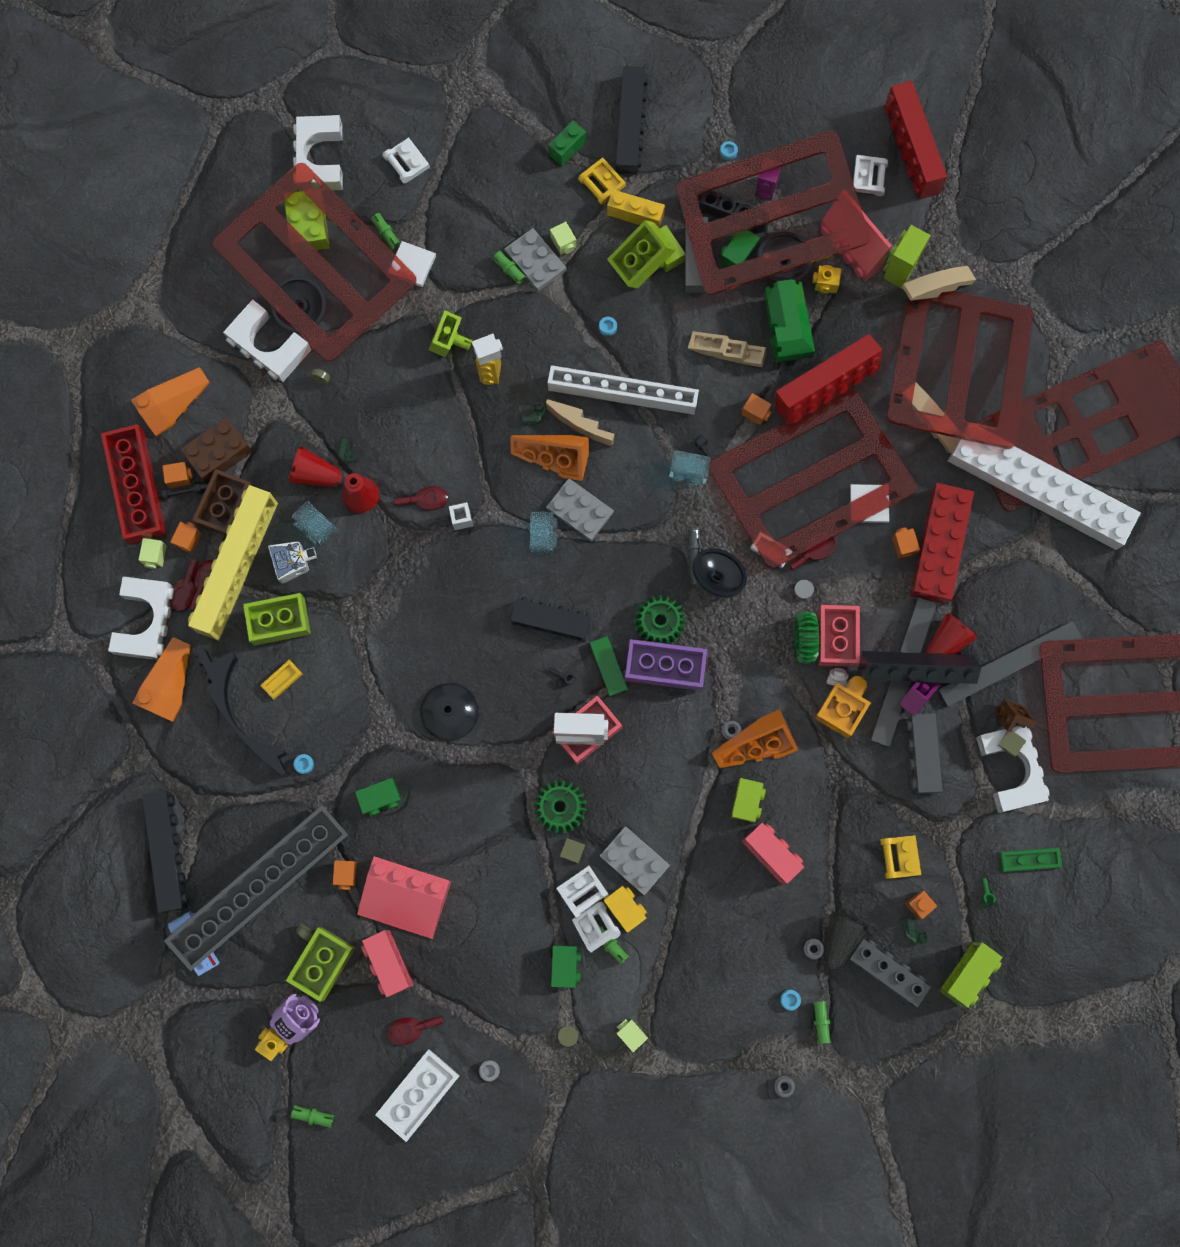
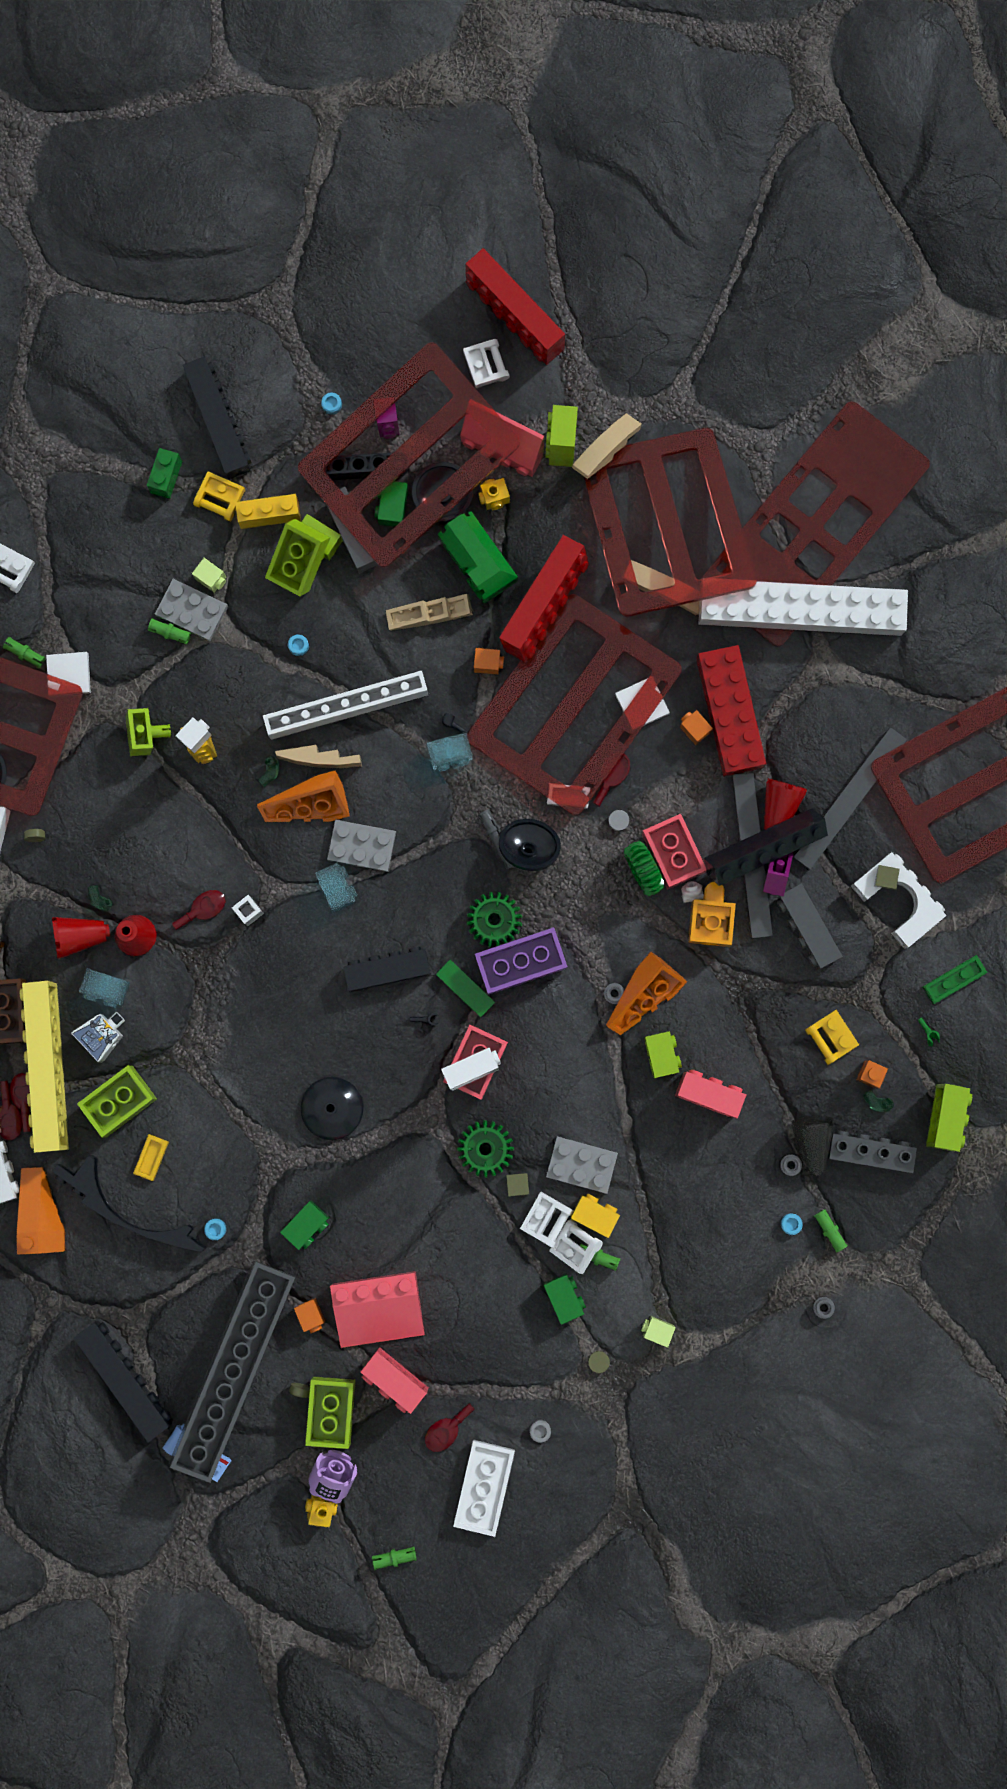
camera: 25 degrees left, 5 degrees up
(1012, 713) = (875, 847): reddish brown bracket -> none

